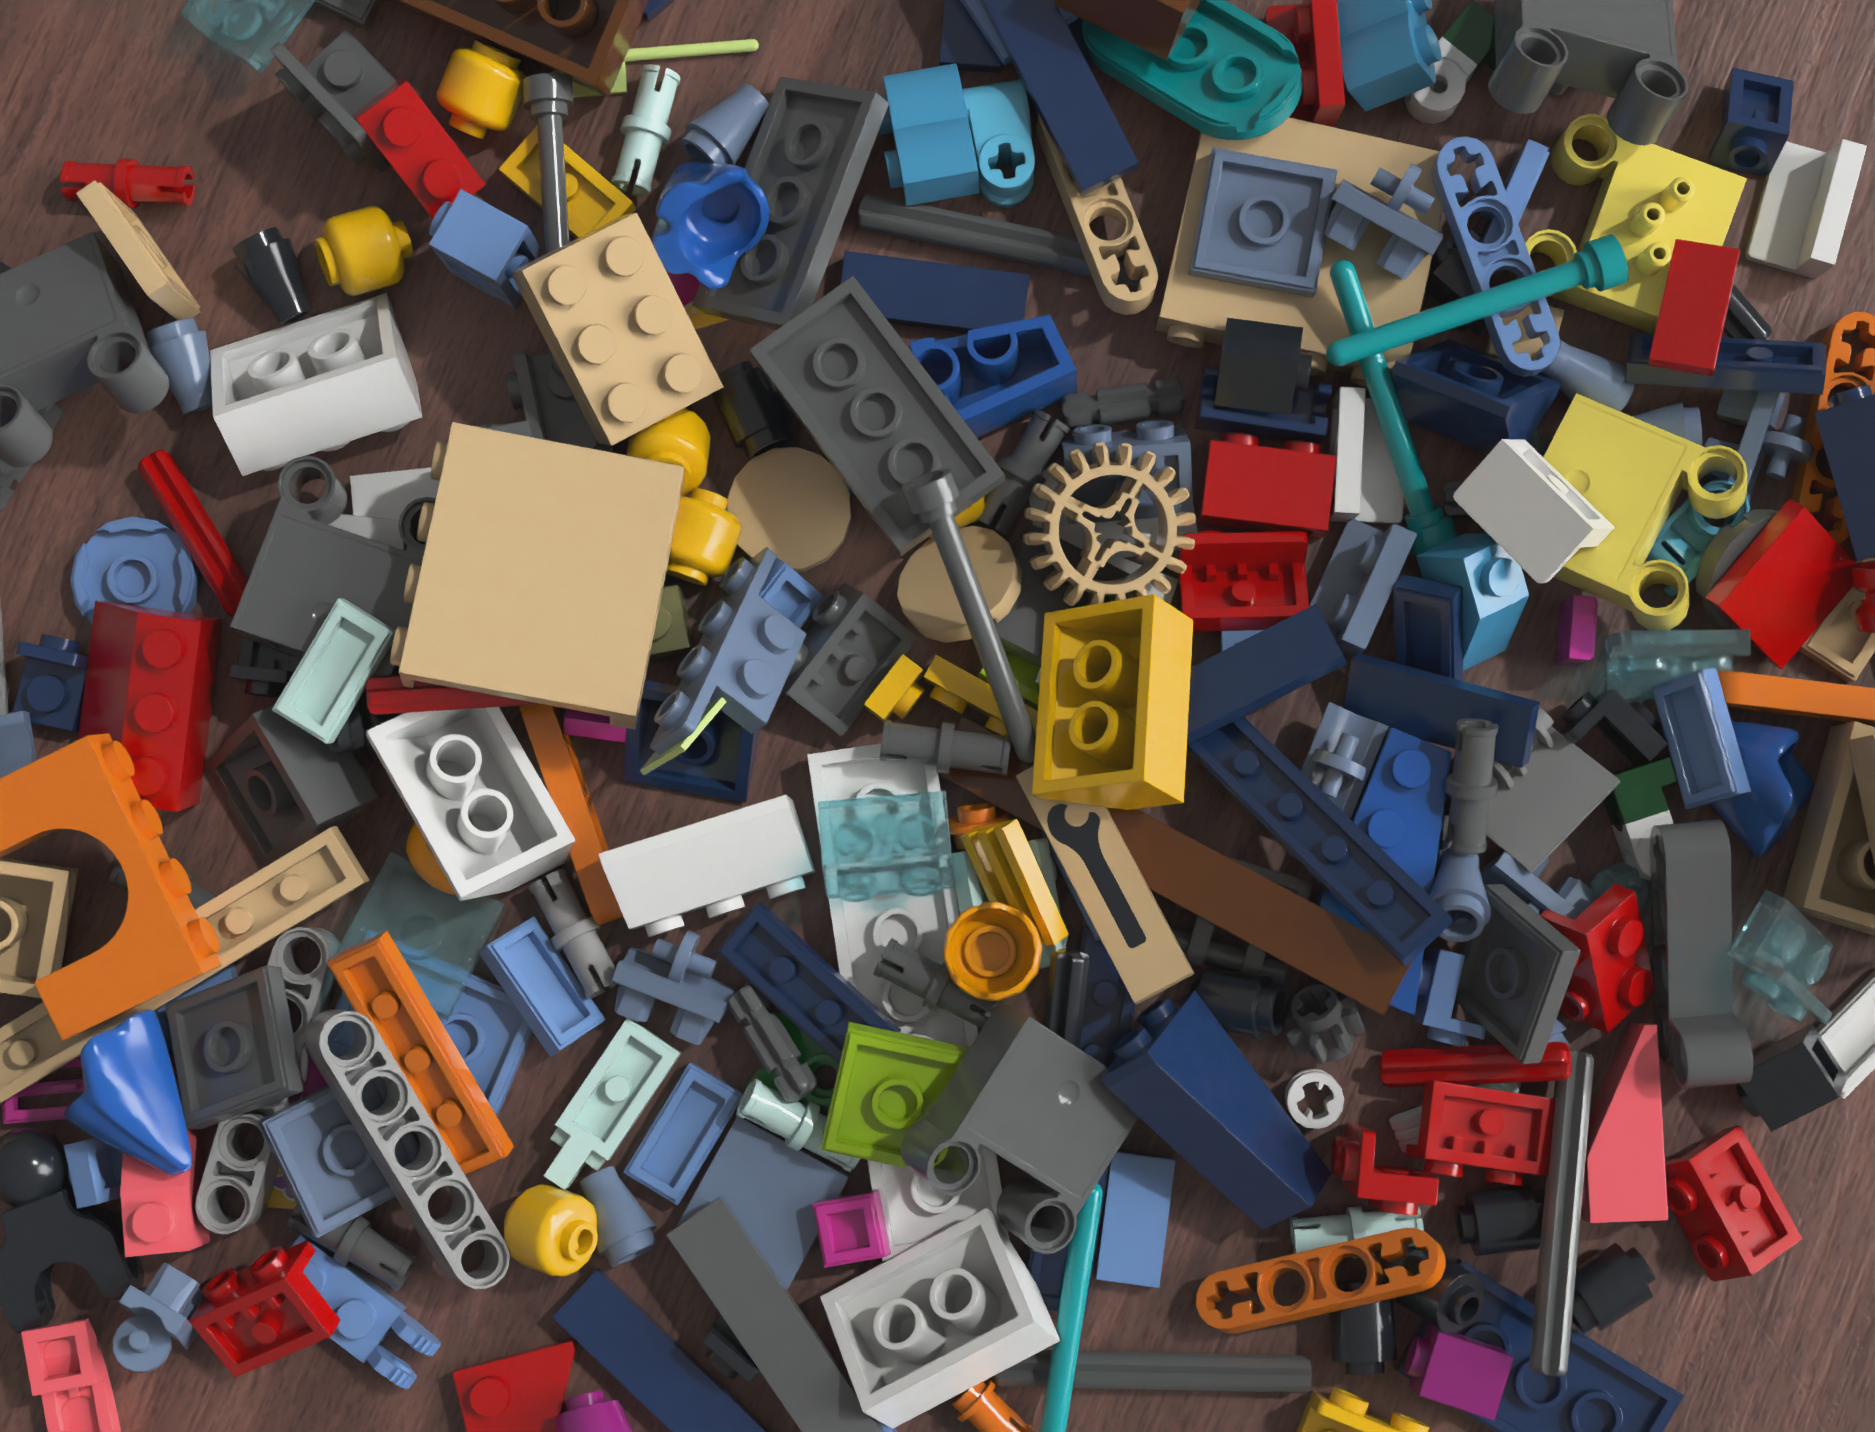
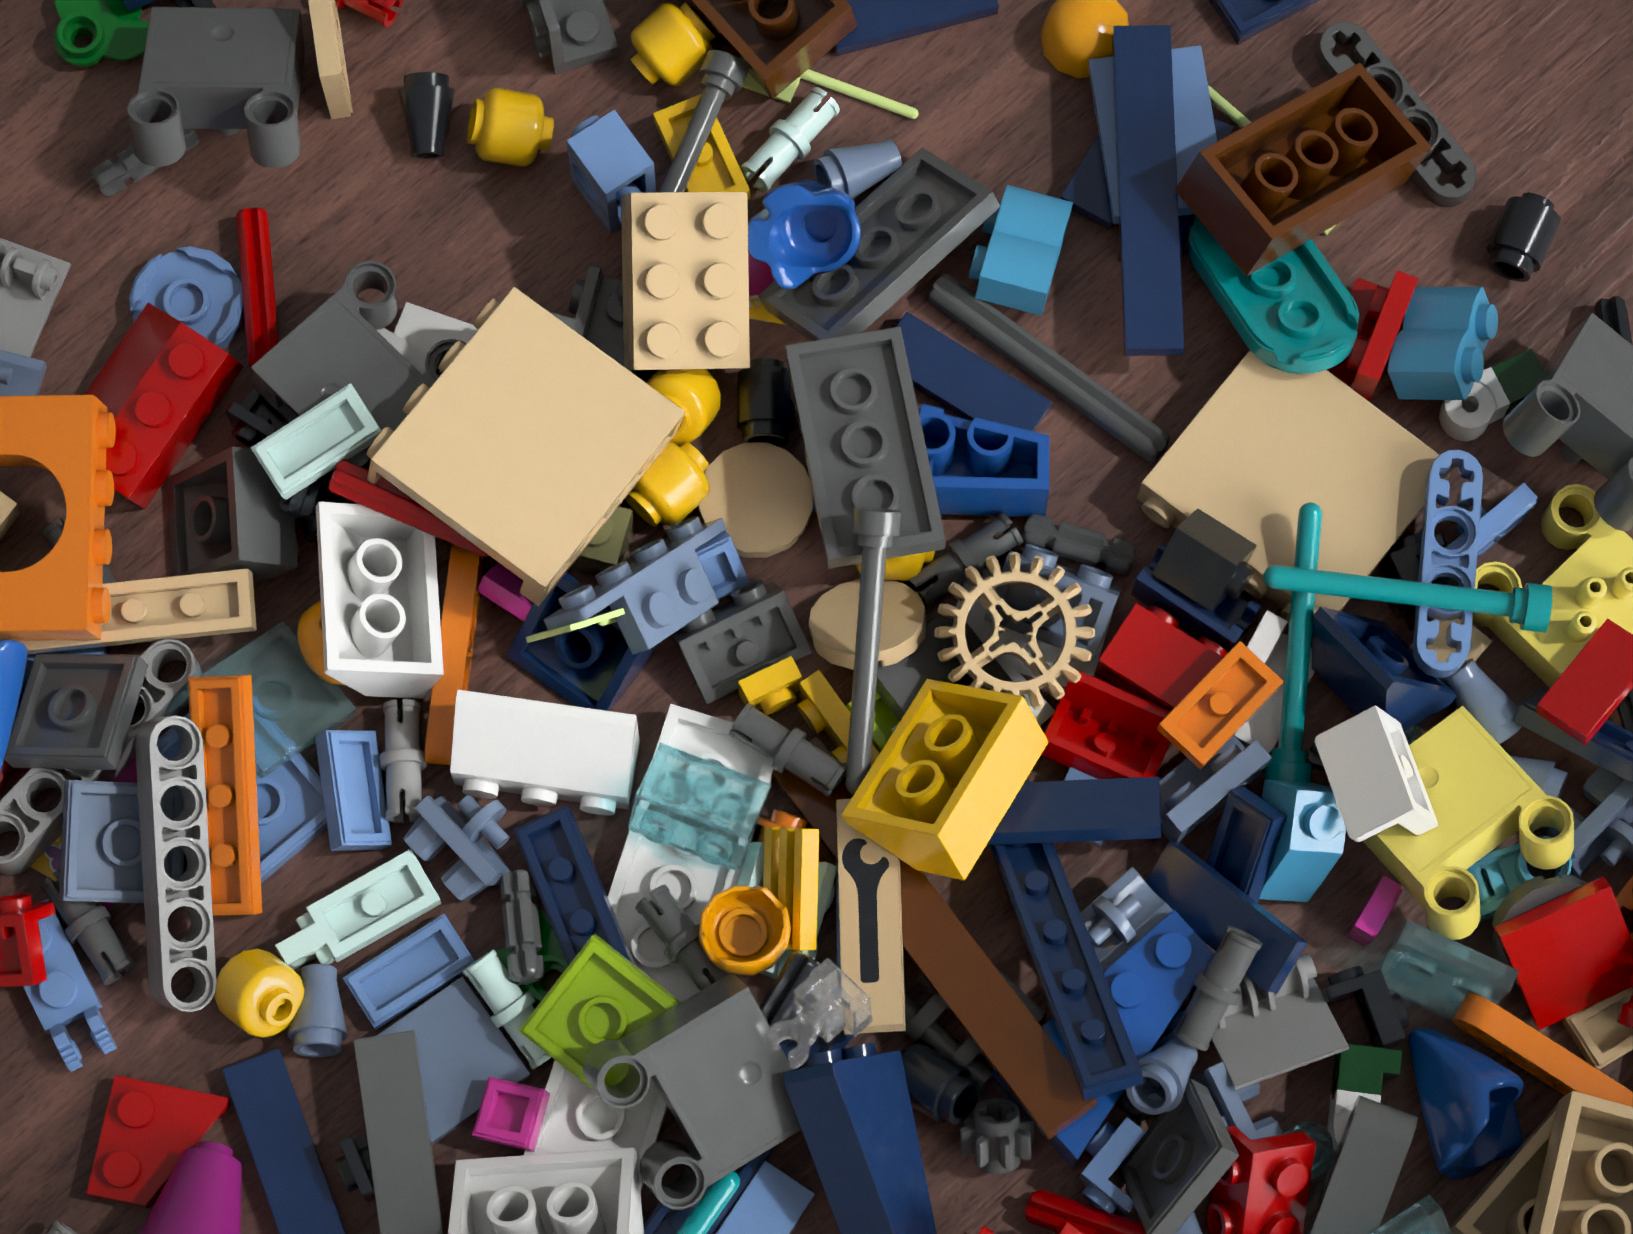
camera: 20 degrees right, 10 degrees down
(52, 682) = (78, 351): dark blue bracket -> none
(186, 361) = (321, 146): sand blue cone -> none
(313, 385) = (414, 215): white slope -> none
(417, 147) = (595, 63): red brick -> none
(1001, 135) = (1081, 278): medium azure piece -> none
(1099, 253) = (1118, 411): tan beam -> none
(1111, 994) = (824, 1007): none -> clear piece
(1263, 222) = (1265, 445): sand blue tile -> none
(1332, 1103) = (946, 1188): white bush -> none
(1343, 505) = (1220, 705): none -> orange plate
(1409, 238) = (1349, 469): sand blue hips -> none
(1701, 738) = (1435, 1045): medium blue tile -> none

